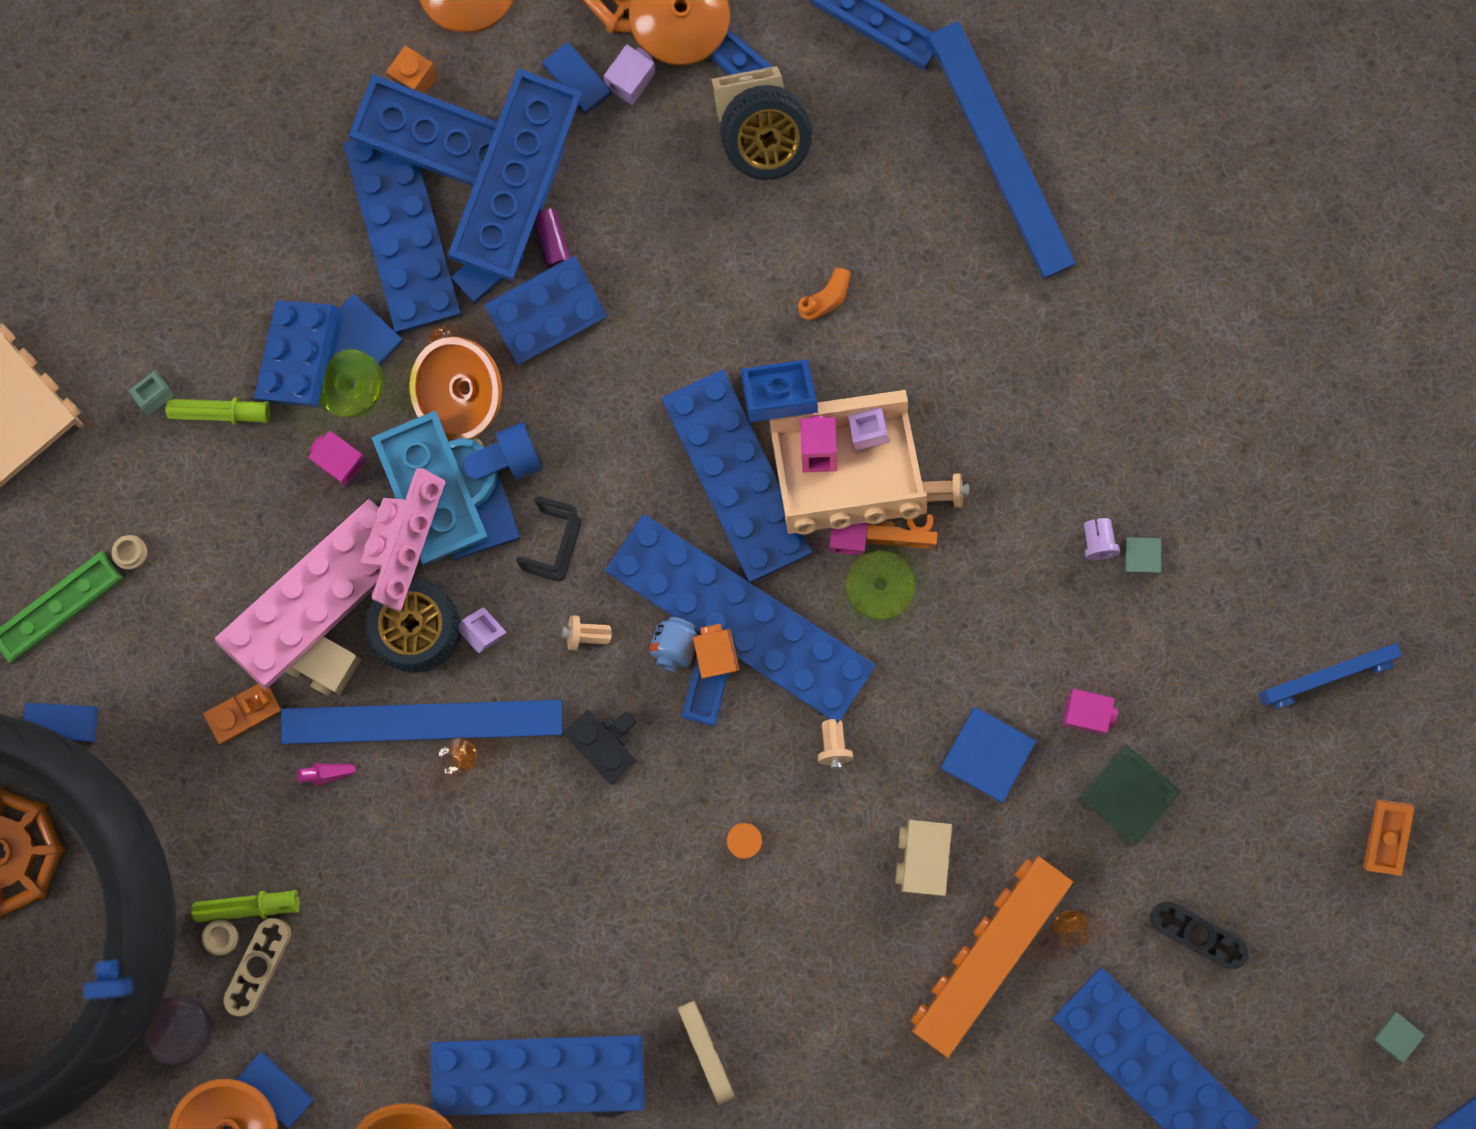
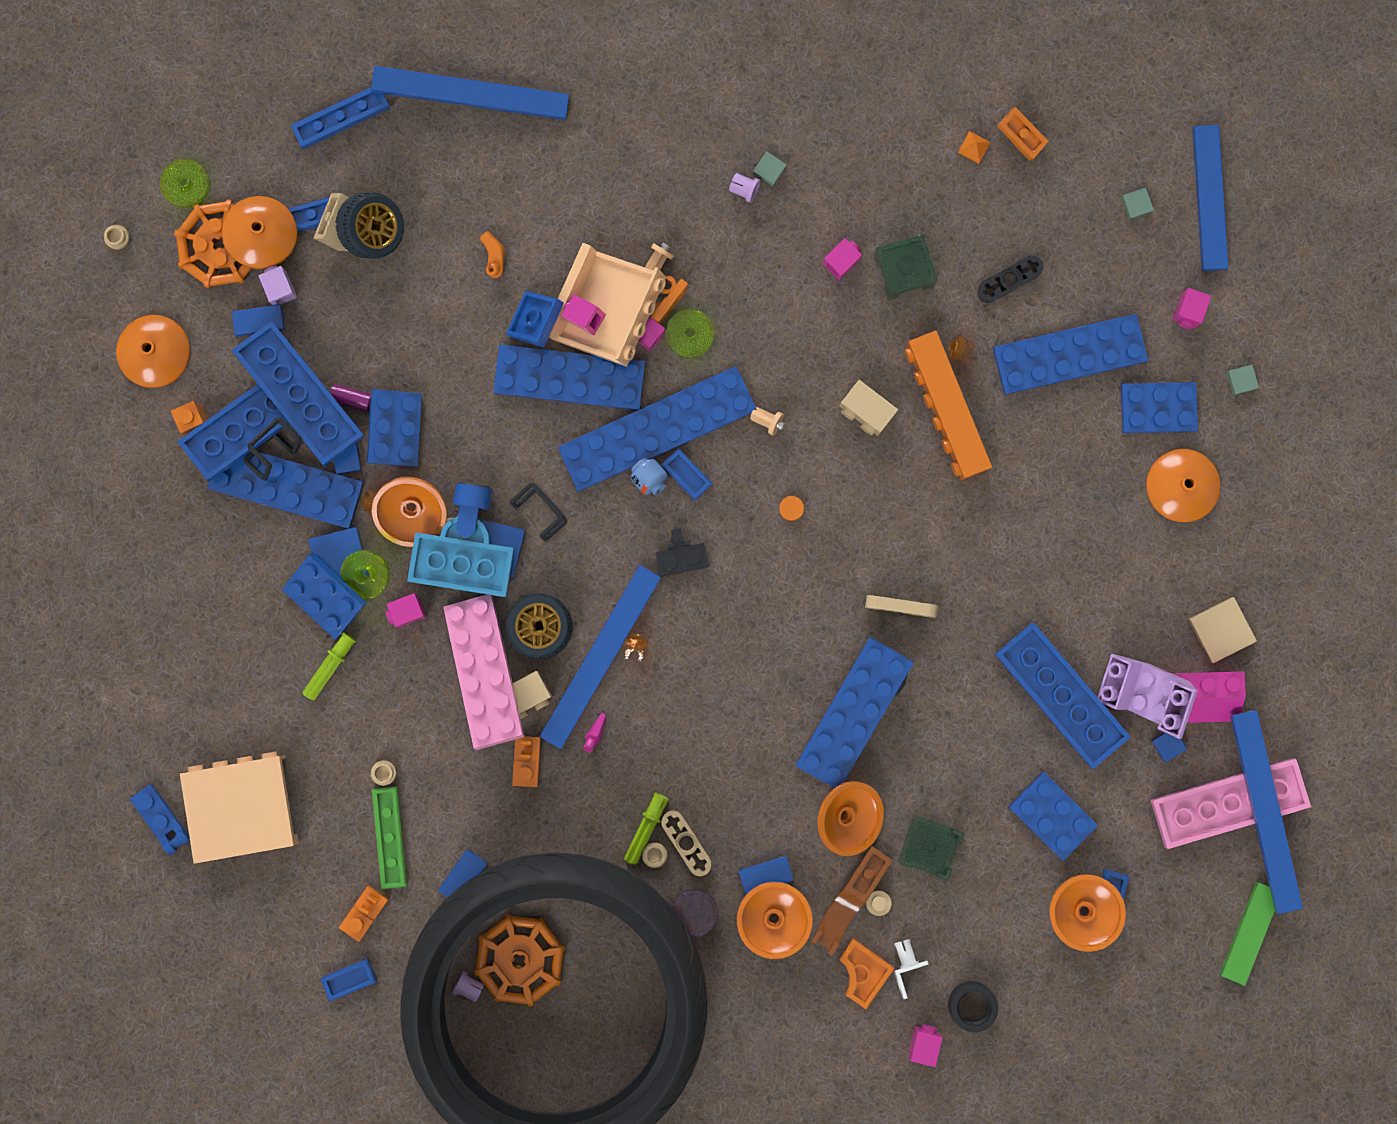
camera: 60 degrees left, 5 degrees up
(107, 982) = (650, 929): blue tile -> none
(151, 393) = (291, 700): sand green tile -> none
(400, 537) = (481, 600): bright pink bracket -> none
(411, 167) = (264, 477): none -> black piece
(481, 630) = (567, 587): lavender plate -> none
(585, 633) = (605, 530): light nougat piece -> none
(715, 651) = (670, 453): orange brick -> none
(868, 429) = (592, 279): lavender plate -> none
(988, 754) = (830, 334): blue tile -> none
(1334, 788) = (974, 147): none -> orange slope
(1376, 660) = (917, 73): blue plate -> none

